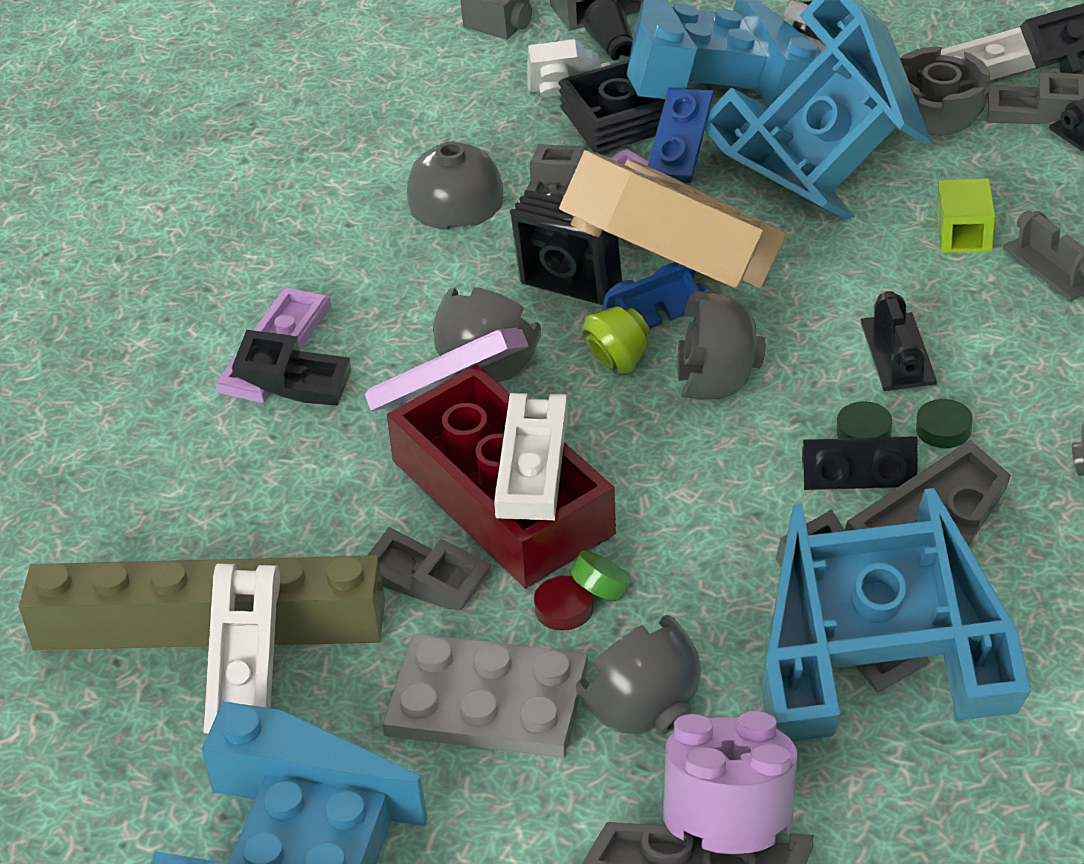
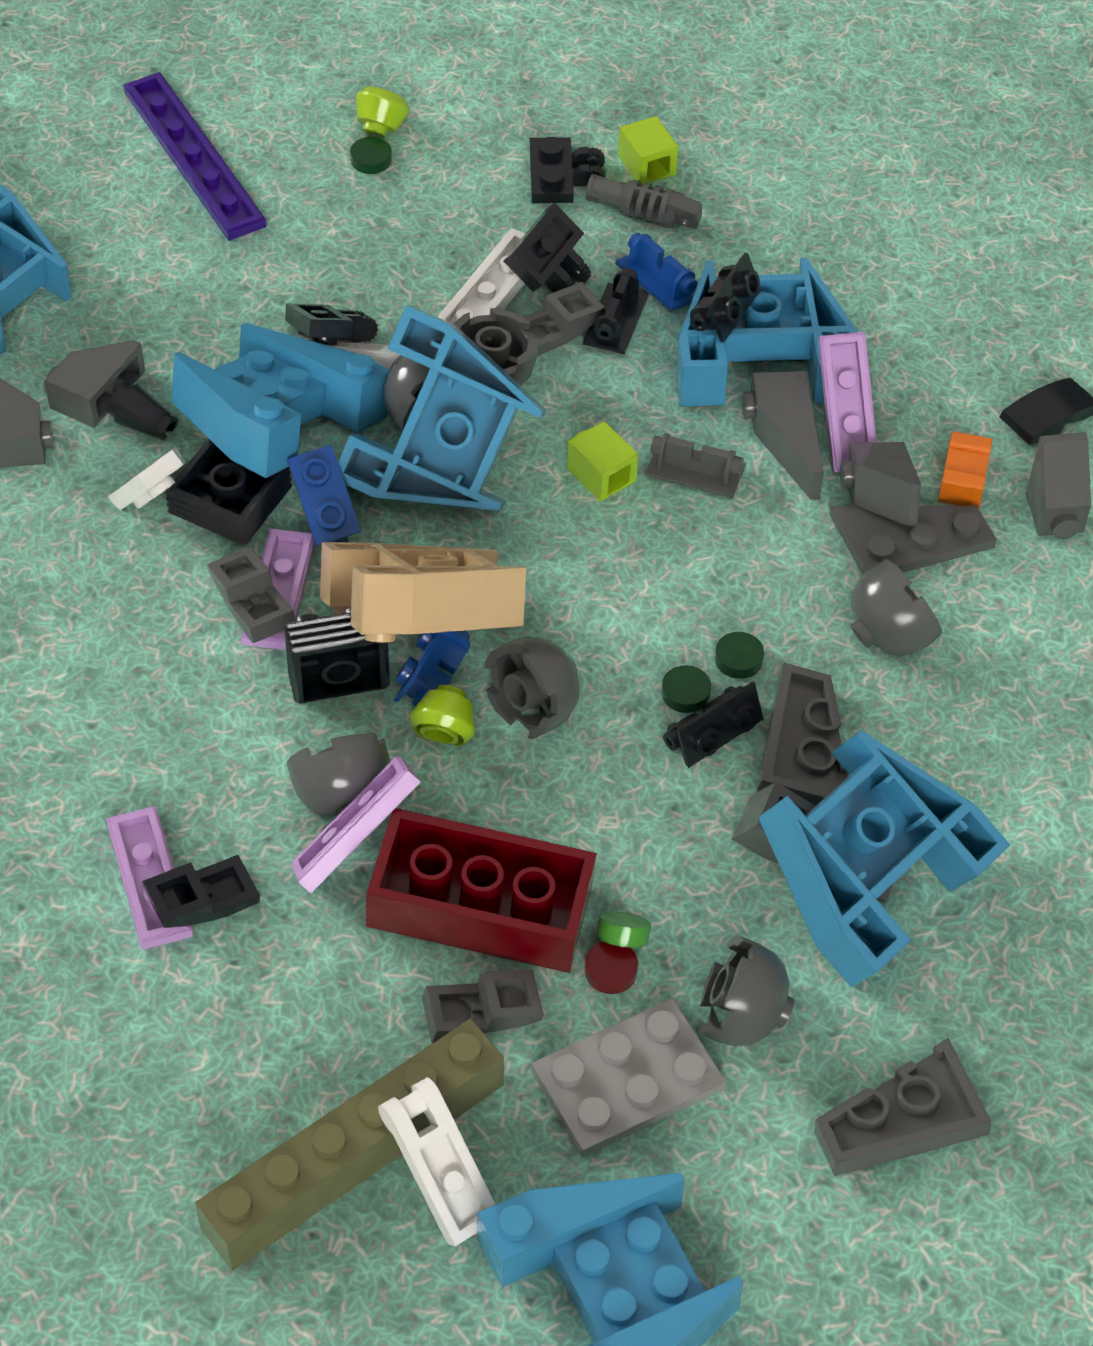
camera: 45 degrees left, 10 degrees up
(454, 186) = (161, 643): dark grey cylinder -> none
(531, 457) = (526, 864): white plate -> none
(729, 781) = (880, 1036): lavender brick -> none
(897, 345) = (650, 606): black hinge -> none

